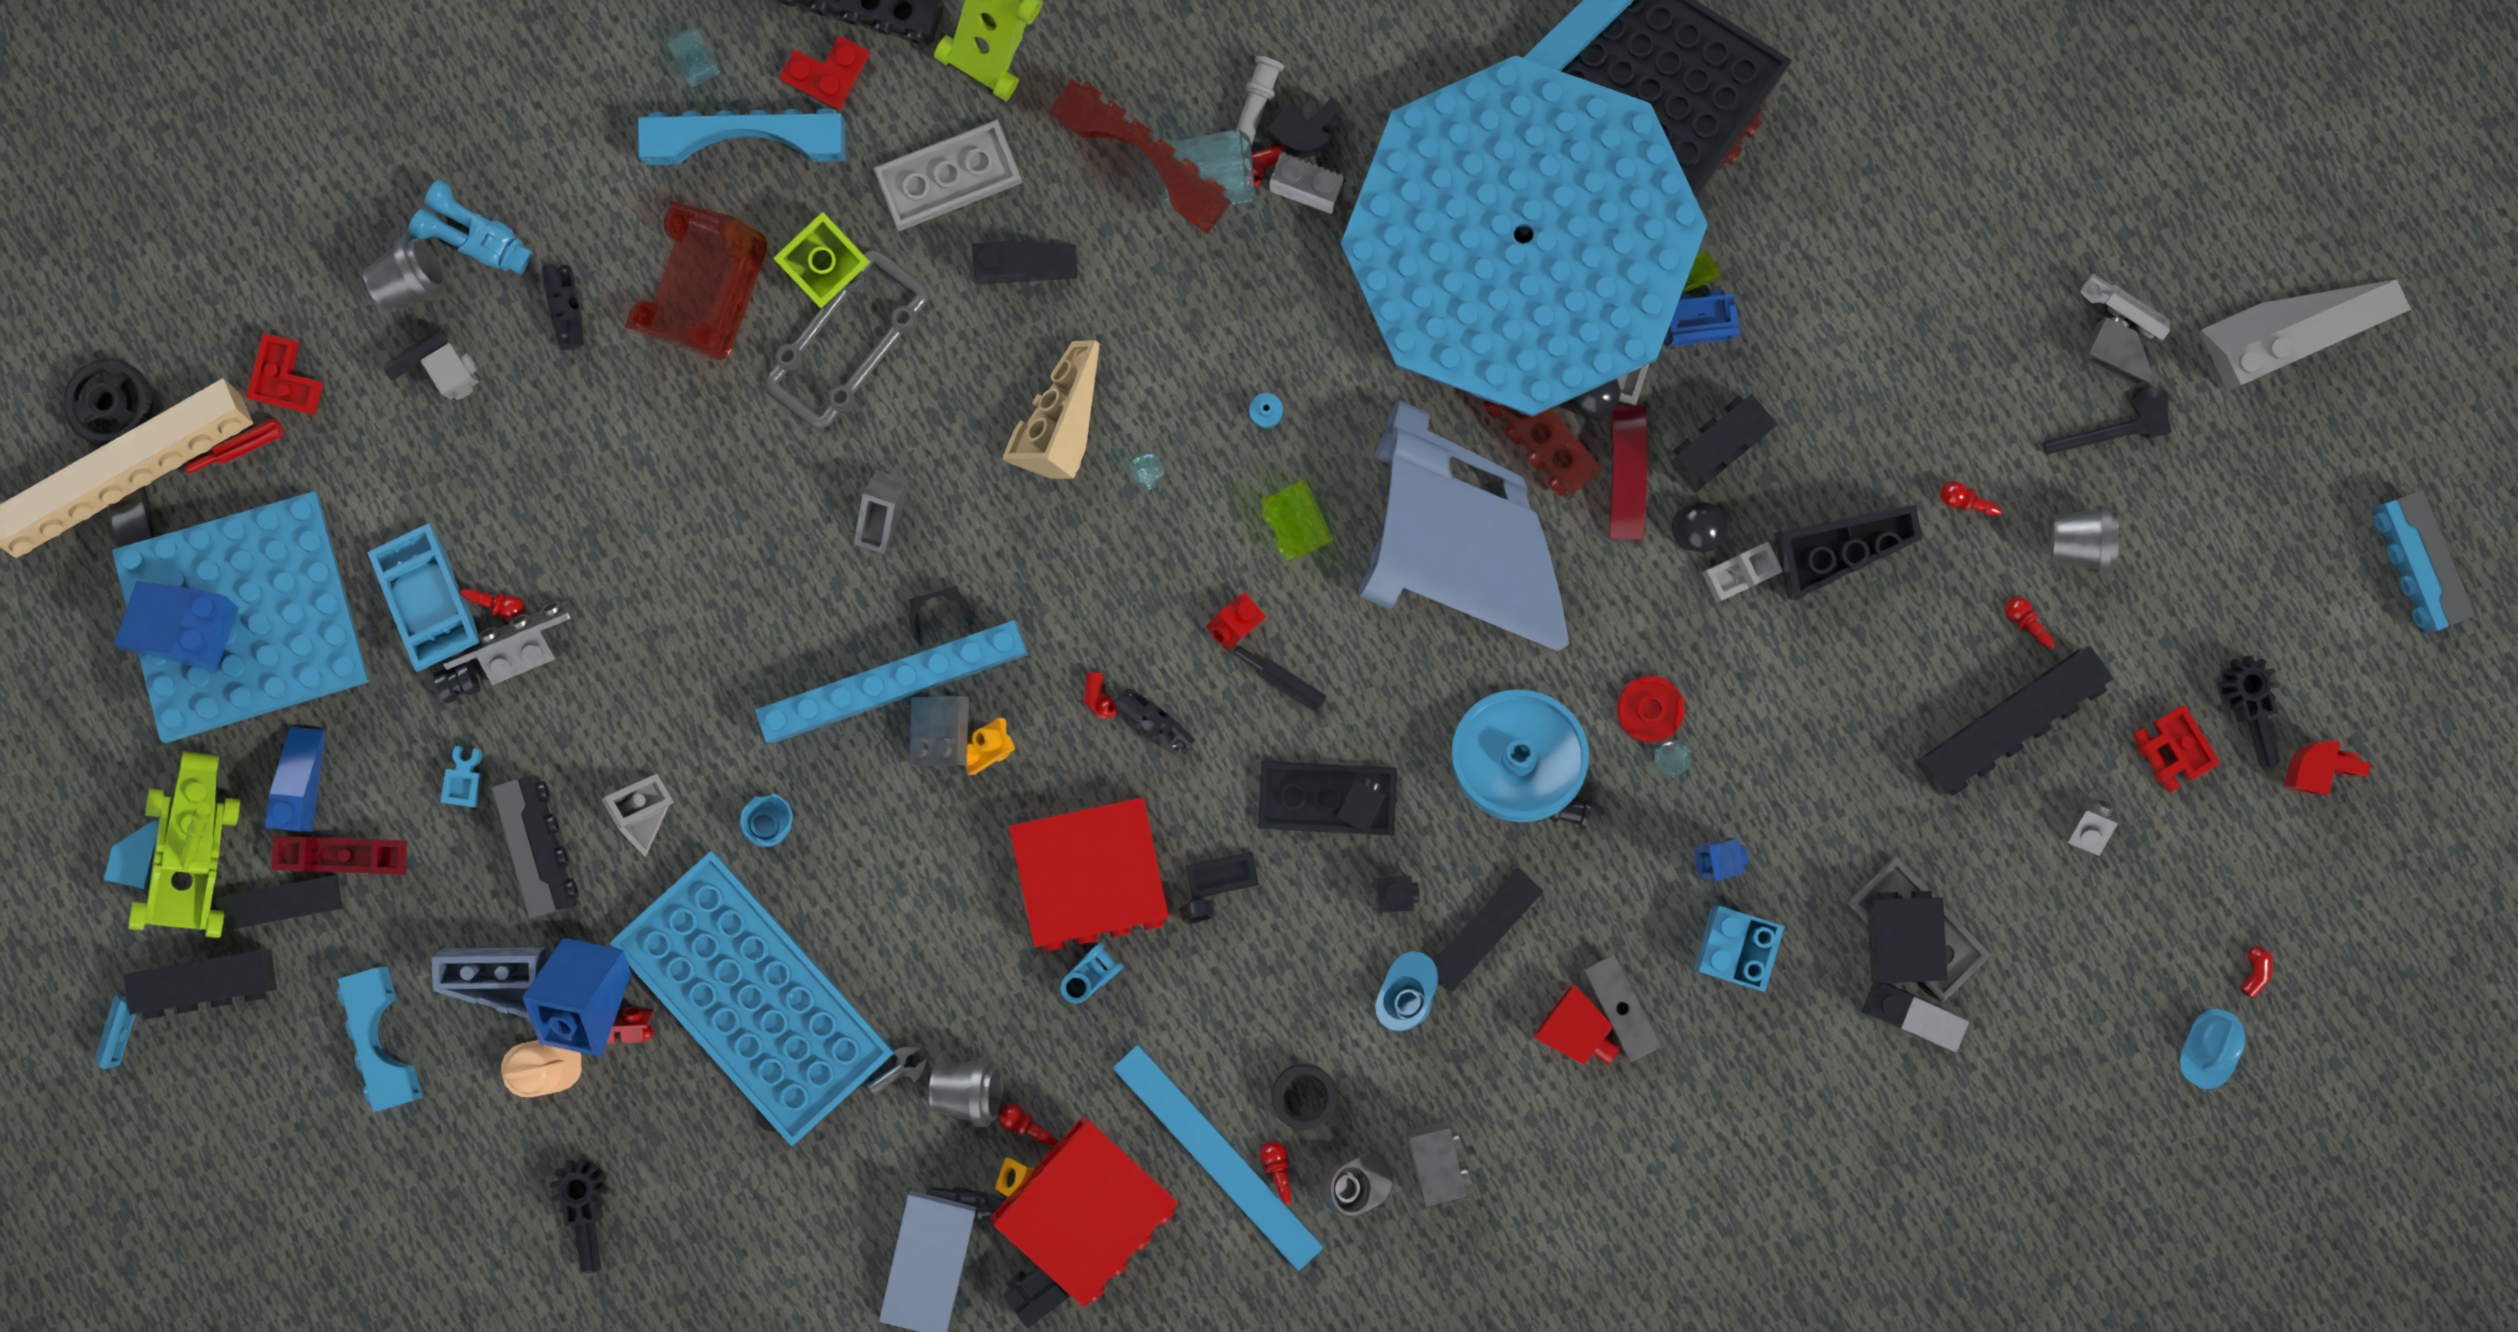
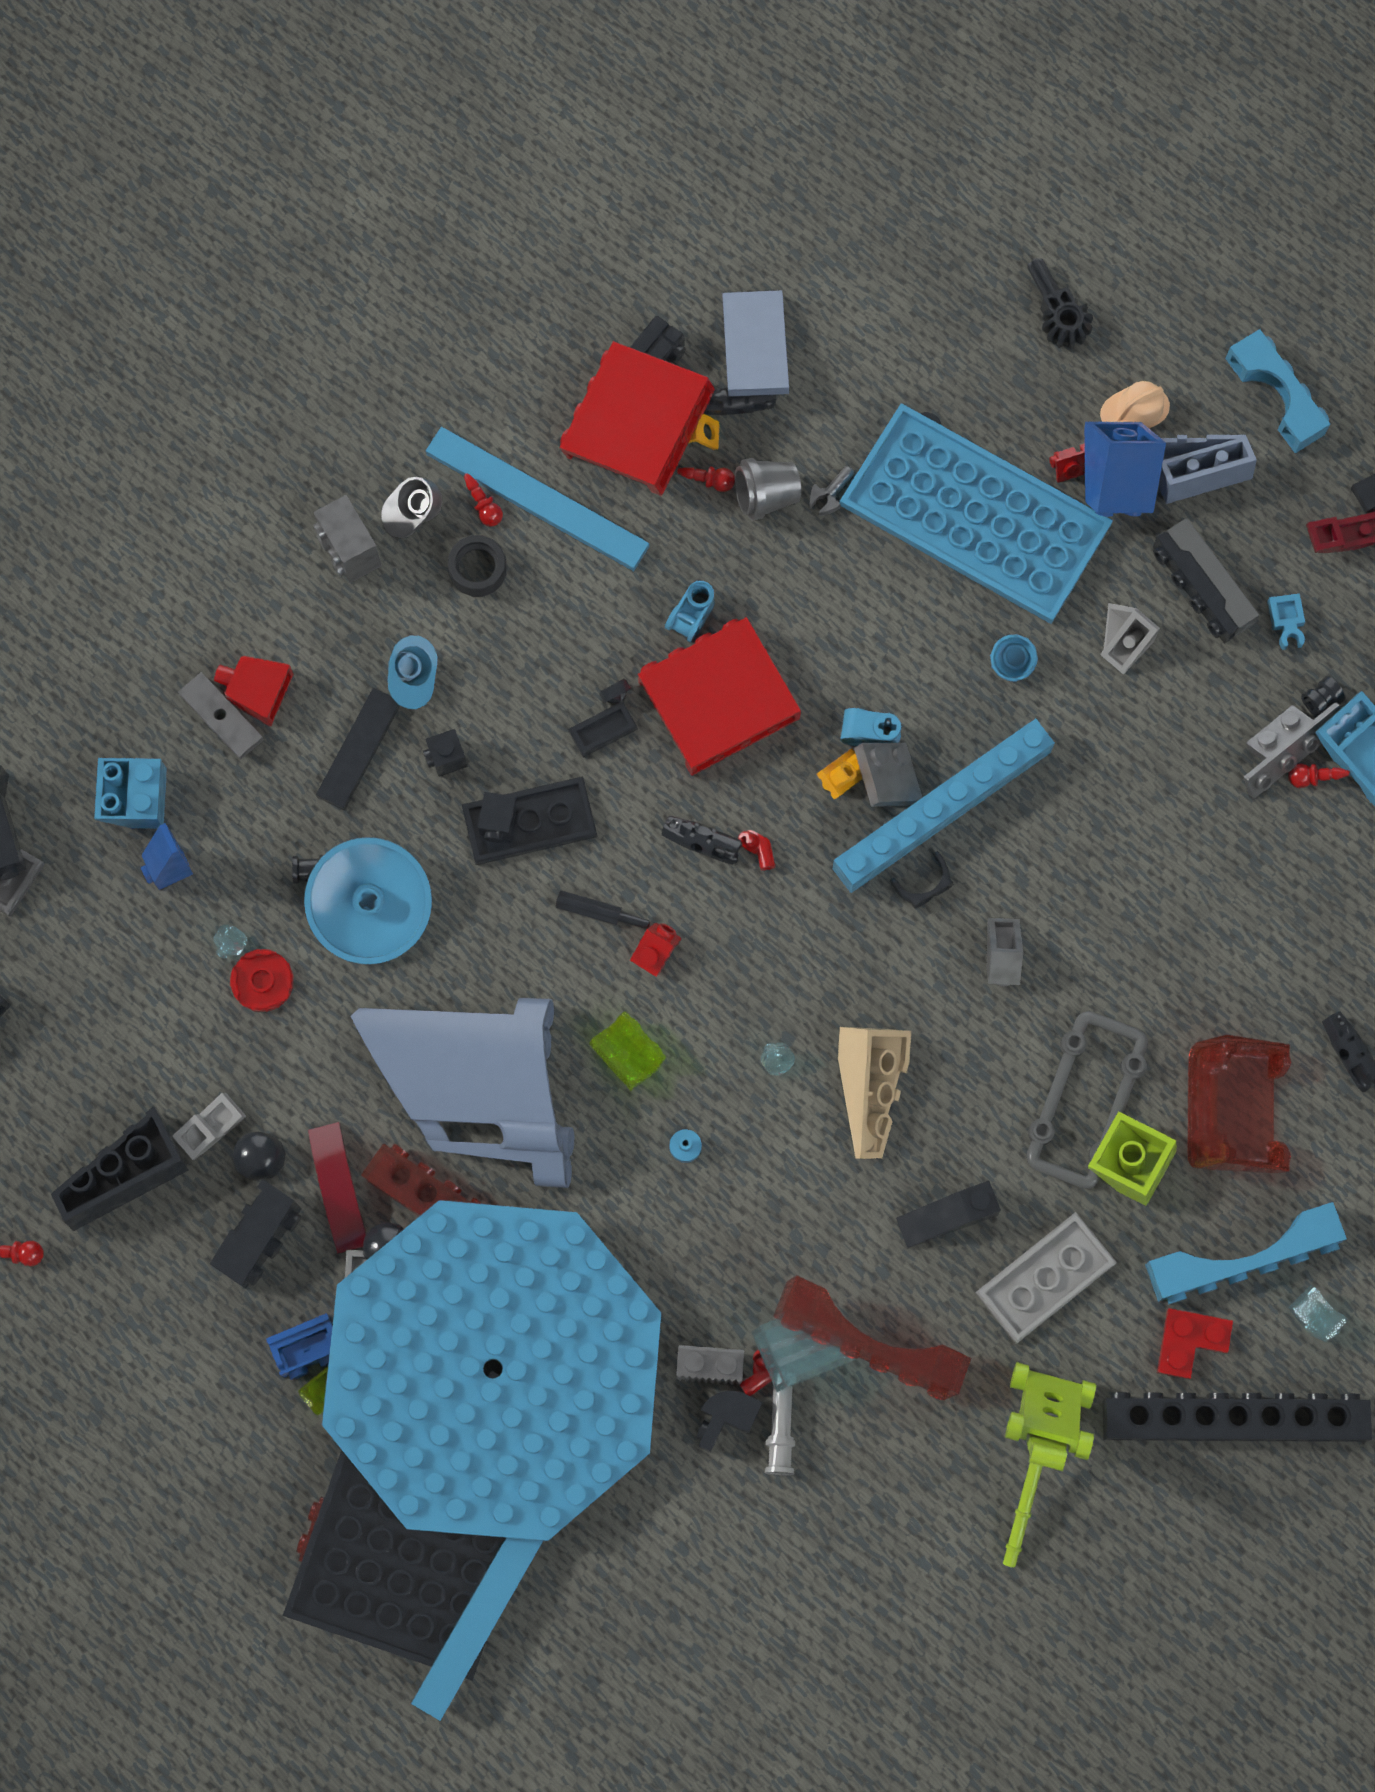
camera: 165 degrees right, 10 degrees down
(947, 792) = (868, 727): none -> dark azure piece

